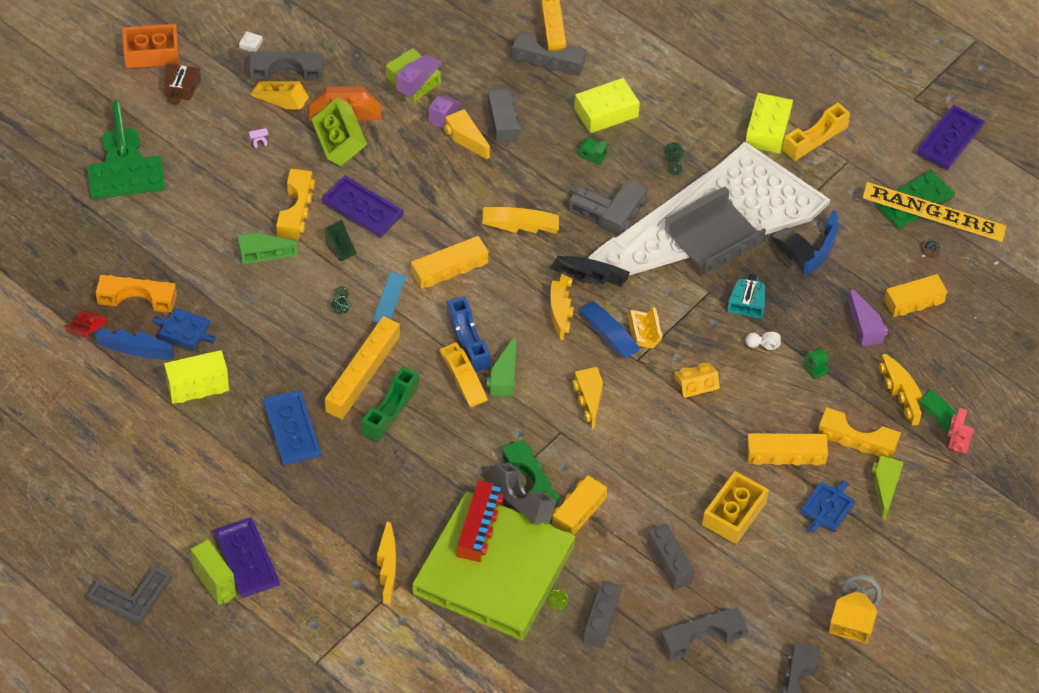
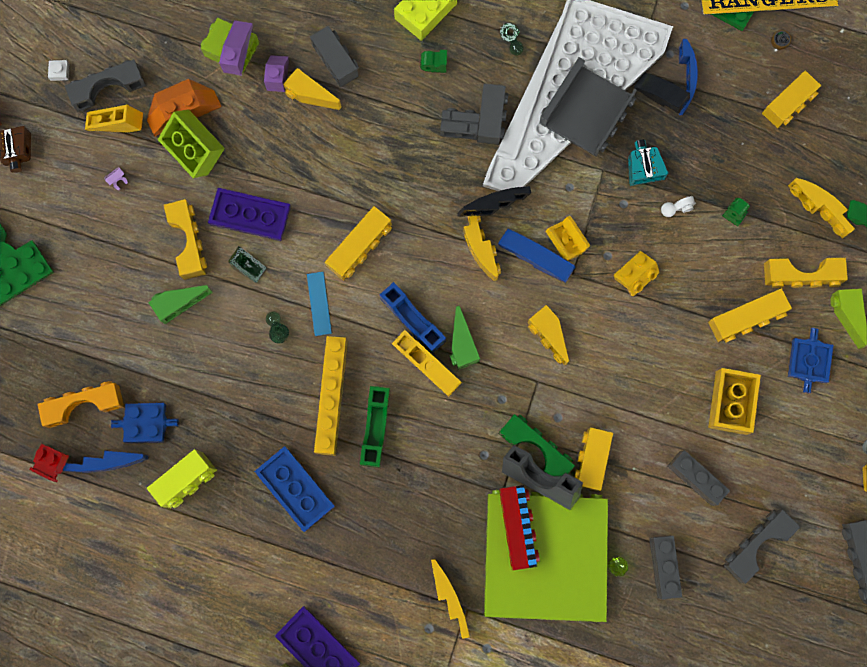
camera: 20 degrees left, 25 degrees up
(519, 218) = (402, 167): yellow slope -> none
(866, 320) = (761, 147): medium lavender slope -> none

